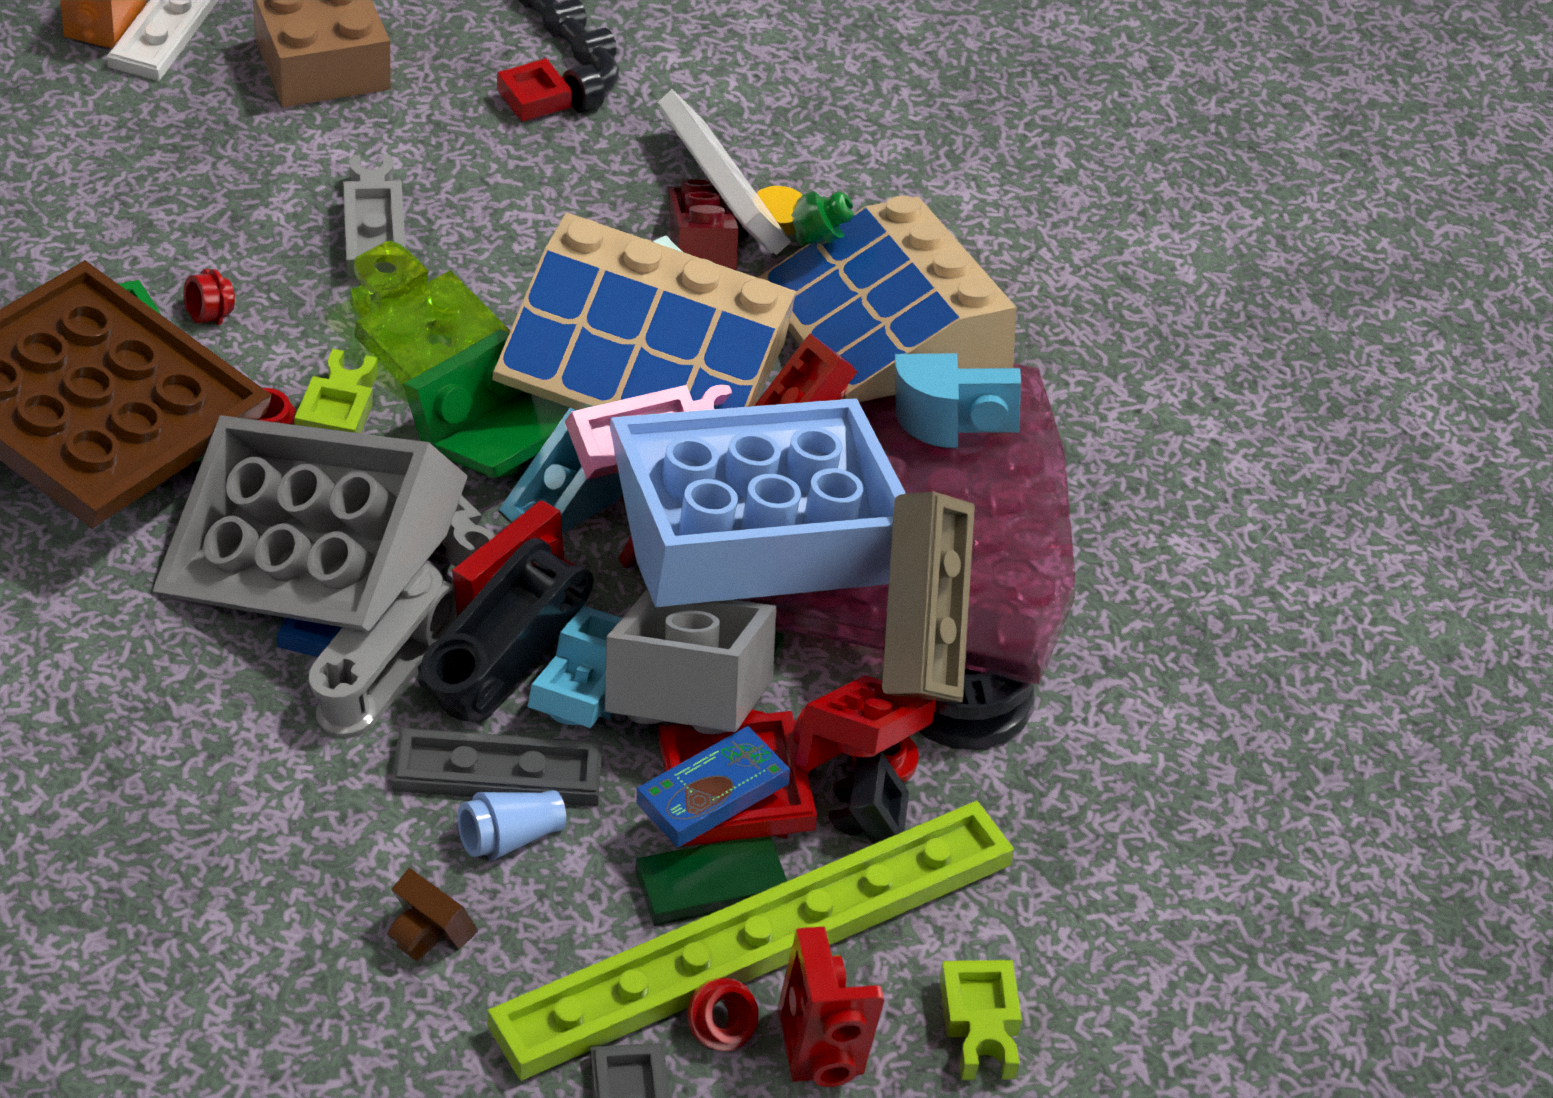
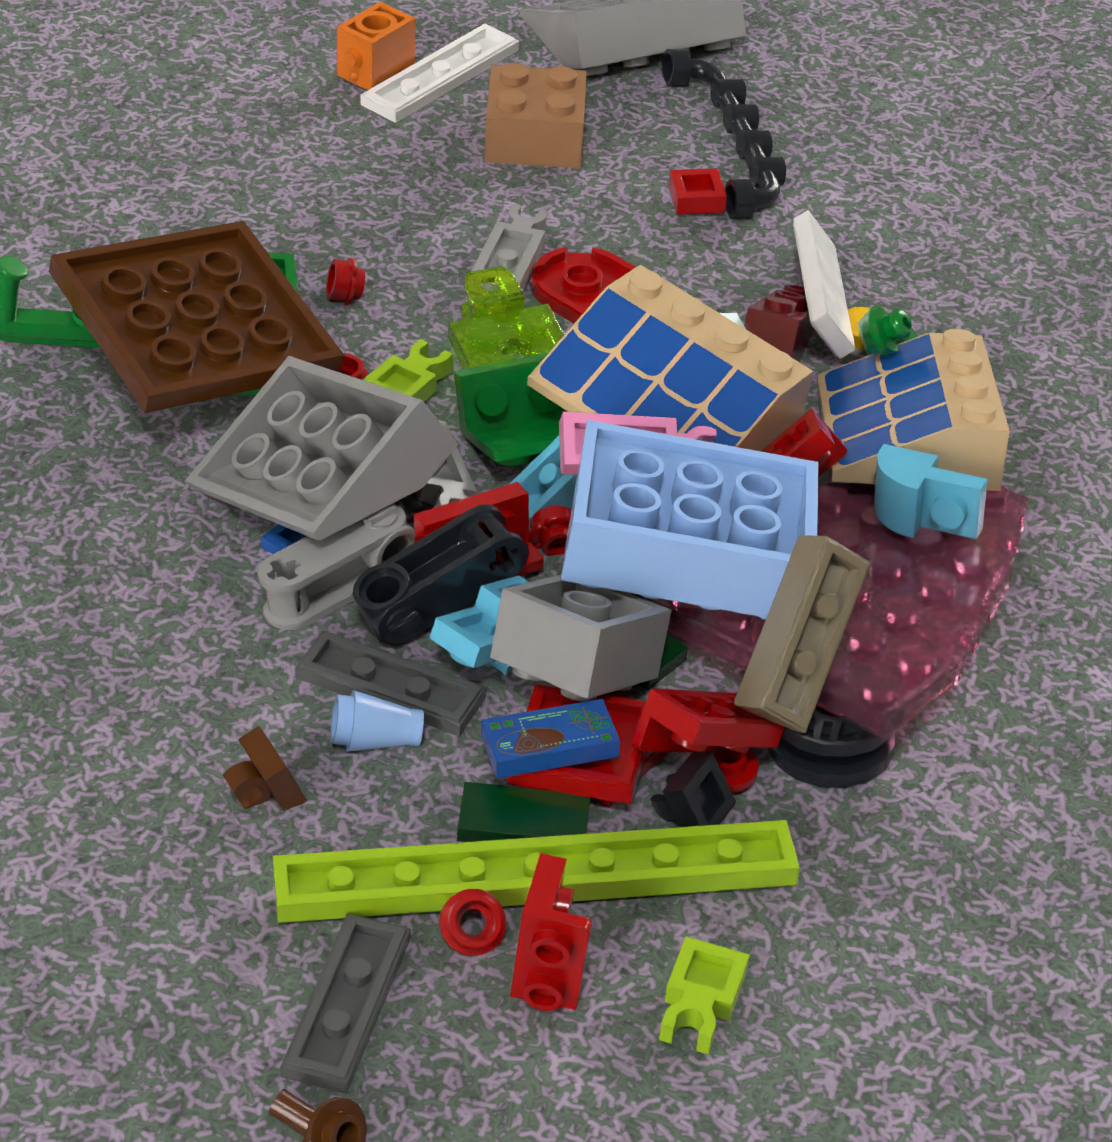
camera: 25 degrees right, 5 degrees down
(468, 232) = (575, 279): none -> red tile
(587, 537) = (550, 529): none -> red plate

